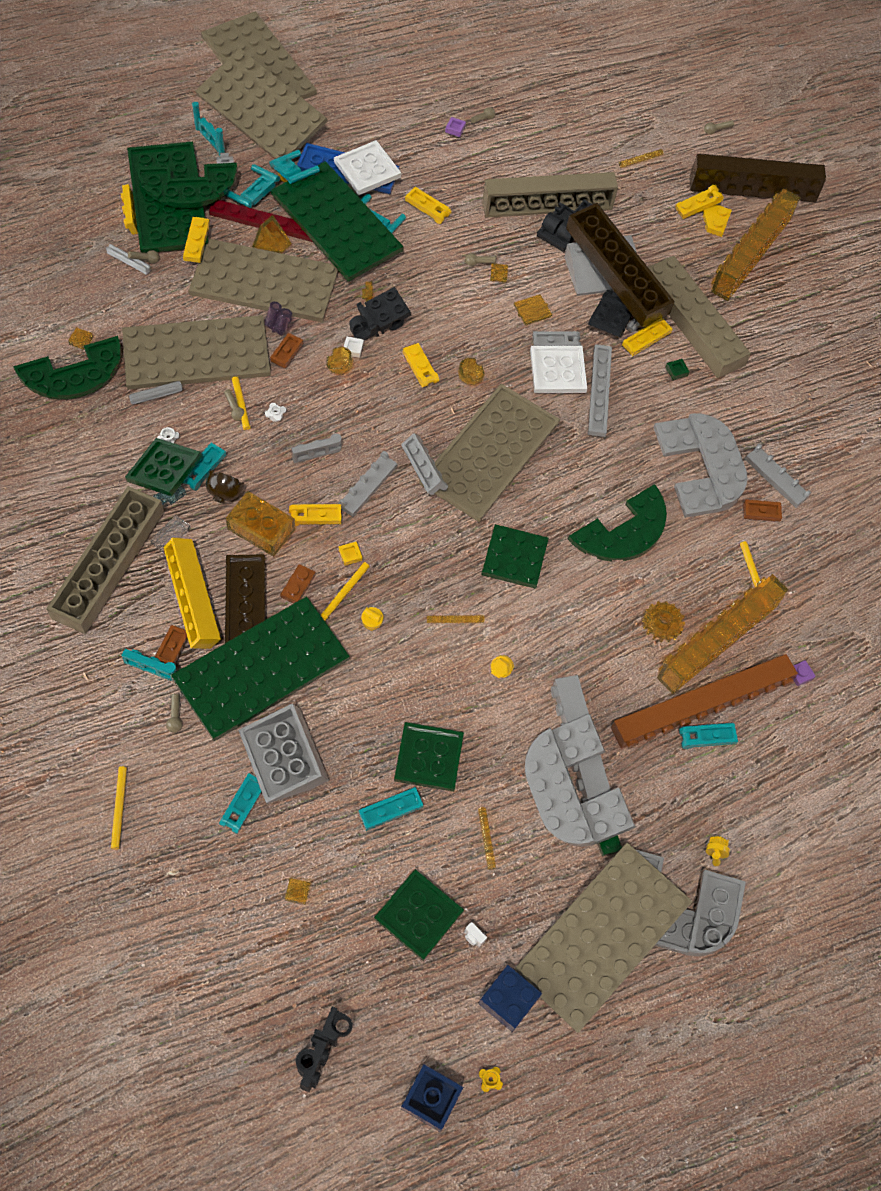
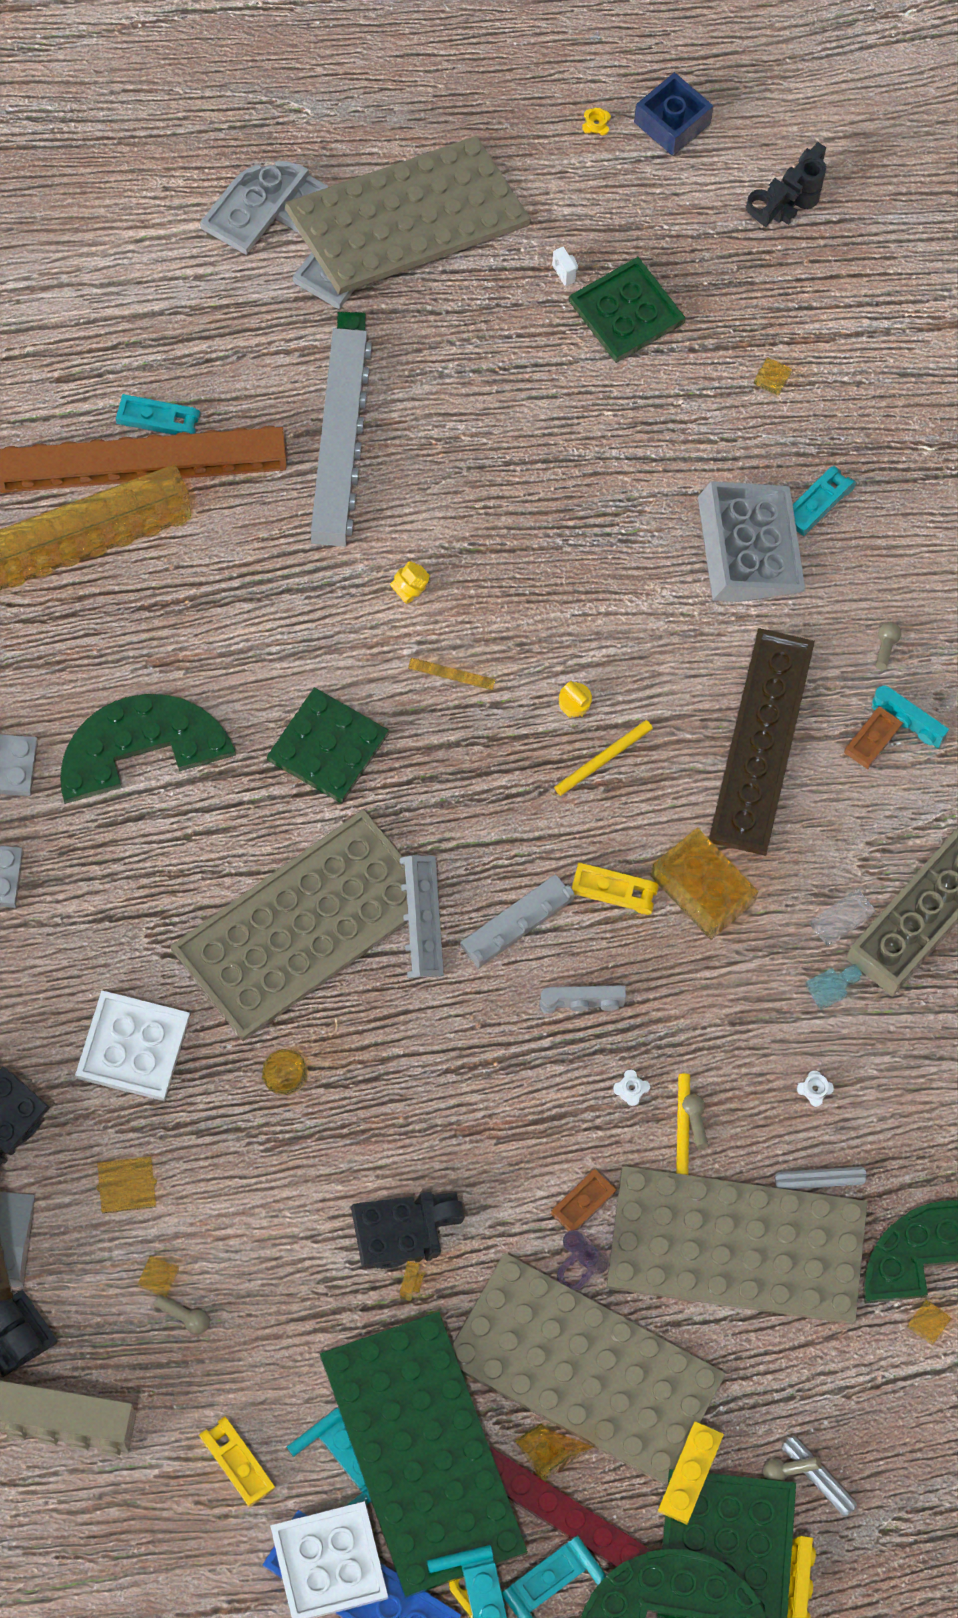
camera: 160 degrees left, 5 degrees up
(163, 467) = (834, 1021): dark green plate -> none
(191, 593) = (830, 803): yellow brick -> none
(211, 458) = (769, 1017): teal plate -> none
(223, 487) = (746, 965): dark brown cylinder -> none
(259, 668) = (753, 666): dark green plate -> none
(298, 584) = (668, 787): dark orange plate -> none
(340, 360) = (500, 1150): clear yellow hair -> none
(350, 553) = (578, 810): yellow plate -> none
(354, 345) = (468, 1179): white plate -> none
(390, 809) = (625, 440): teal plate -> none
(420, 365) = (363, 1119): yellow plate -> none
(429, 756) = (553, 492): dark green plate -> none
(486, 838) = (509, 376): clear yellow bar -> none
(509, 998) = (547, 187): dark blue brick -> none
(555, 793) = (402, 389): light grey plate -> none
(556, 338) = (113, 1103): light grey plate -> none
(599, 390) = (78, 989): light grey plate -> none
(668, 613) = (154, 595): clear yellow gear -> none
(718, 849) = (213, 276): yellow piece -> none

